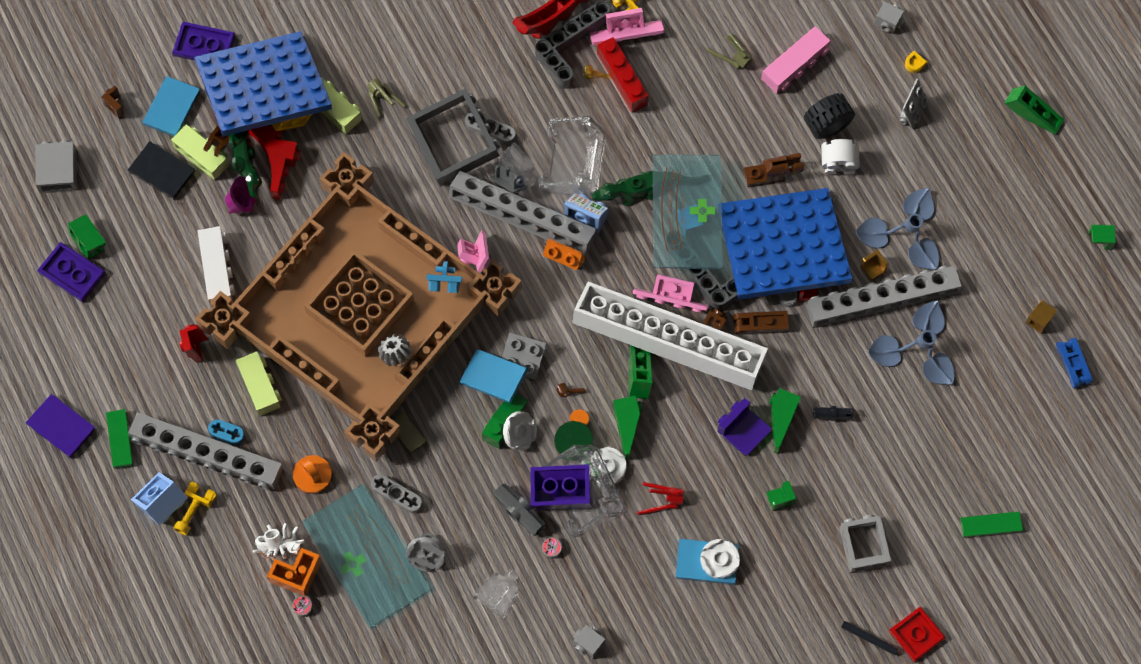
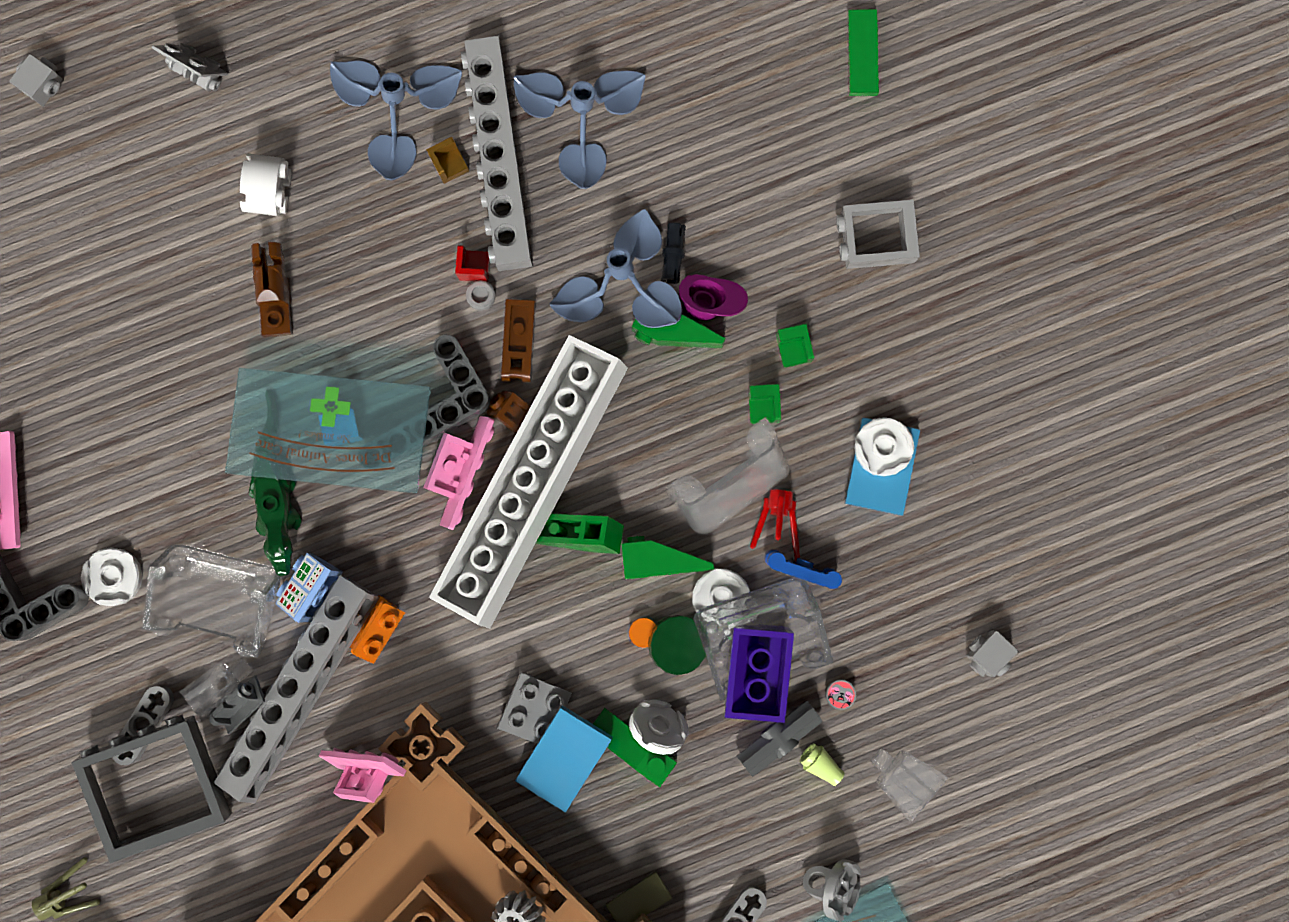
camera: 80 degrees left, 15 degrees up
(453, 281) = (407, 842): dark azure hips -> none
(504, 538) = (819, 762): none -> yellowish green cone
(564, 391) = (595, 652): reddish brown hand -> none
(580, 99) = (111, 576): none -> white tile
(589, 73) = (68, 557): clear yellow hand -> none
(622, 74) = (77, 505): red brick -> none
(631, 512) = (803, 569): none -> blue plate
(682, 466) = (713, 506): none -> clear windscreen
(739, 481) = (764, 402): none -> green panel
(742, 58) = (74, 315): olive plant -> none
(743, 427) = (684, 387): dark purple bracket -> none
(784, 243) = (398, 289): blue plate -> none
(794, 401) = (655, 307): none -> sand blue plant
(796, 60) = (89, 231): bright pink brick -> none
(806, 437) = (711, 297): none -> magenta piece
(829, 116) = (195, 191): black tyre -> none
(869, 637) = (1014, 248): black bar -> none
(915, 63) = (117, 53): yellow tile -> none
(917, 634) = (1014, 180): red tile -> none

